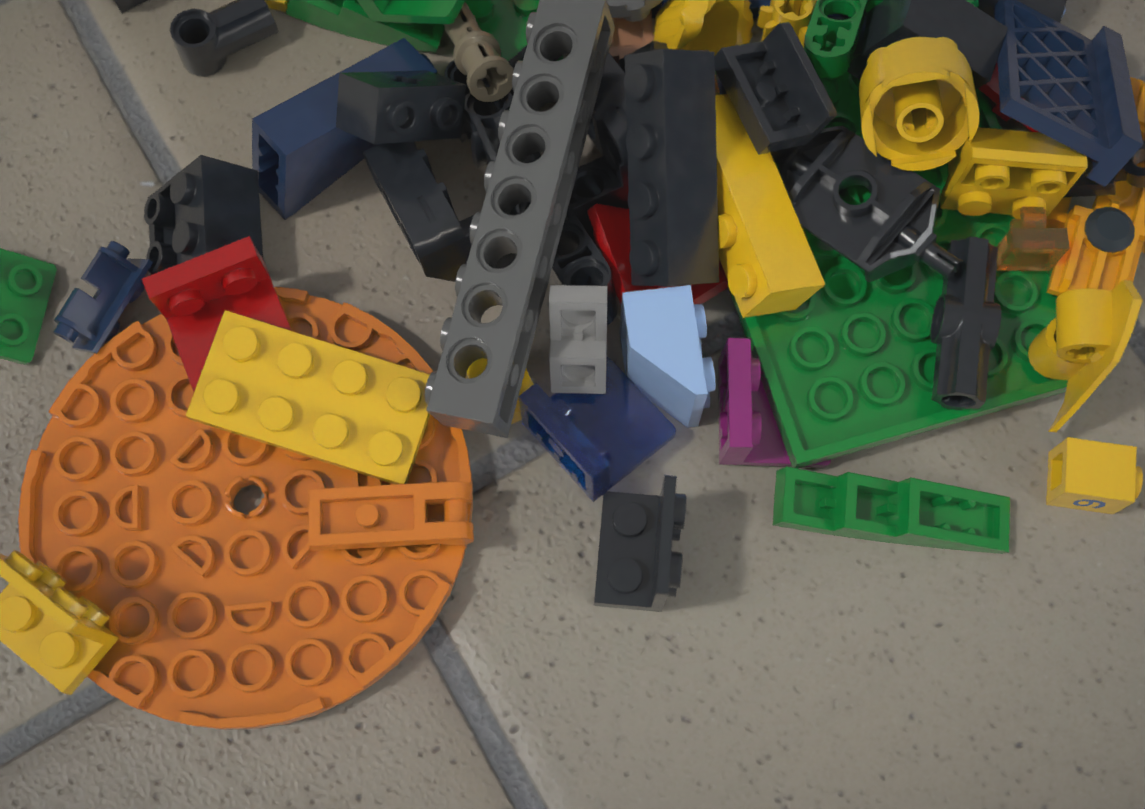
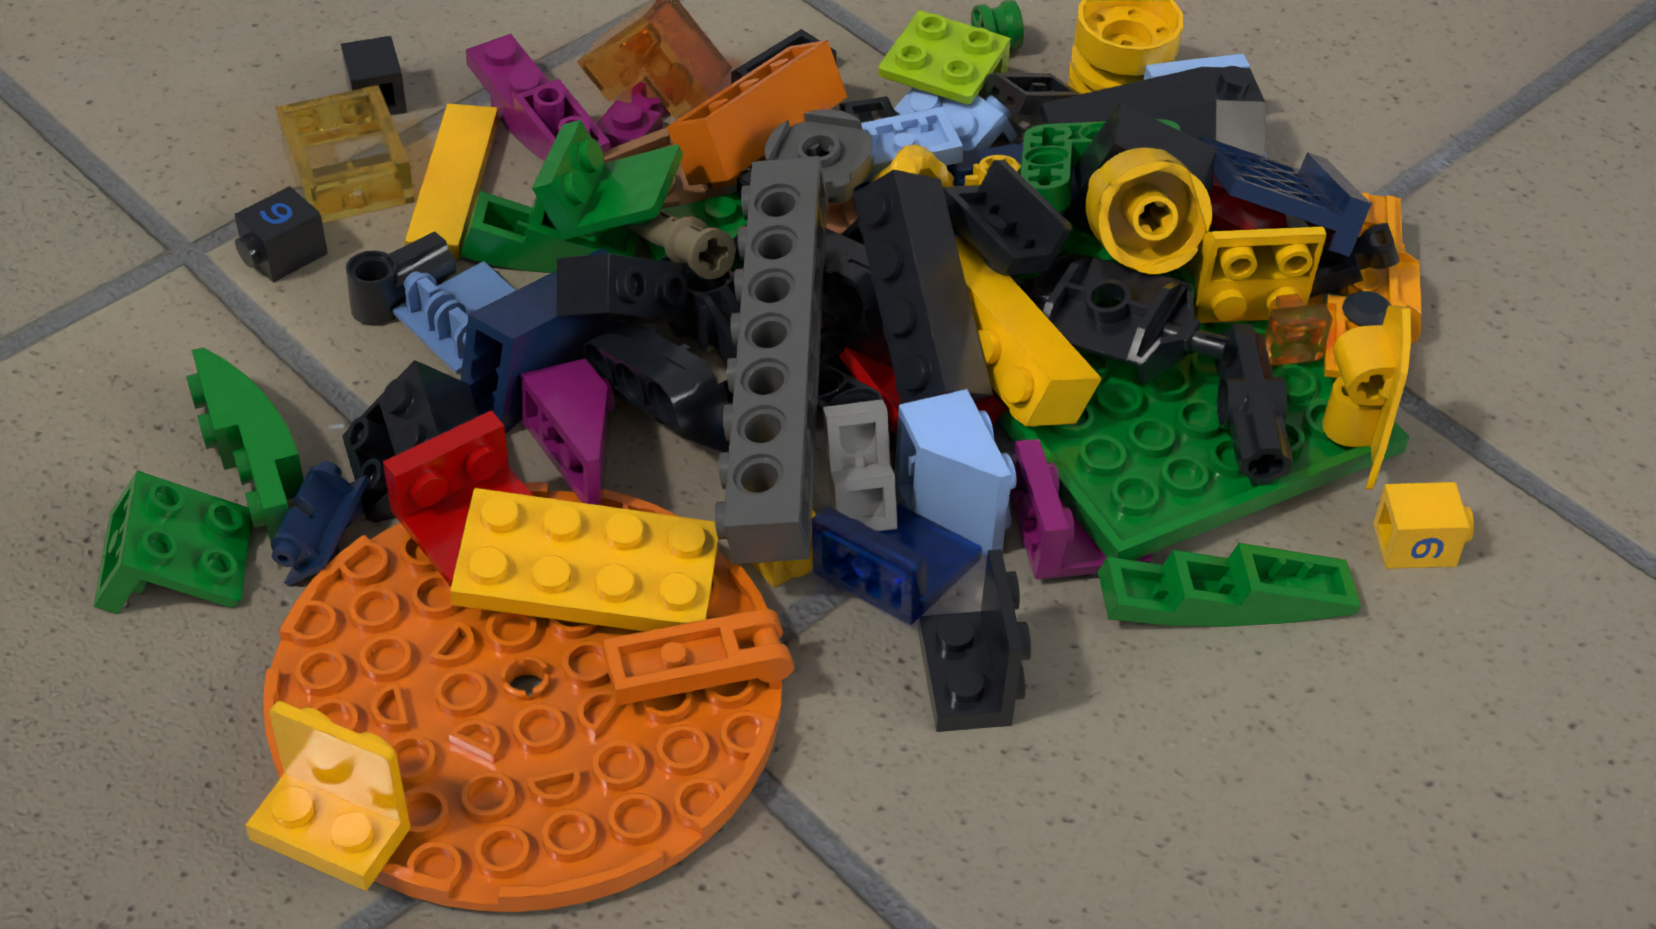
camera: 15 degrees left, 25 degrees down
(65, 196) = (247, 436): none -> green slope
(271, 71) = (441, 311): none -> medium blue hinge
(343, 234) = (569, 419): none -> magenta slope

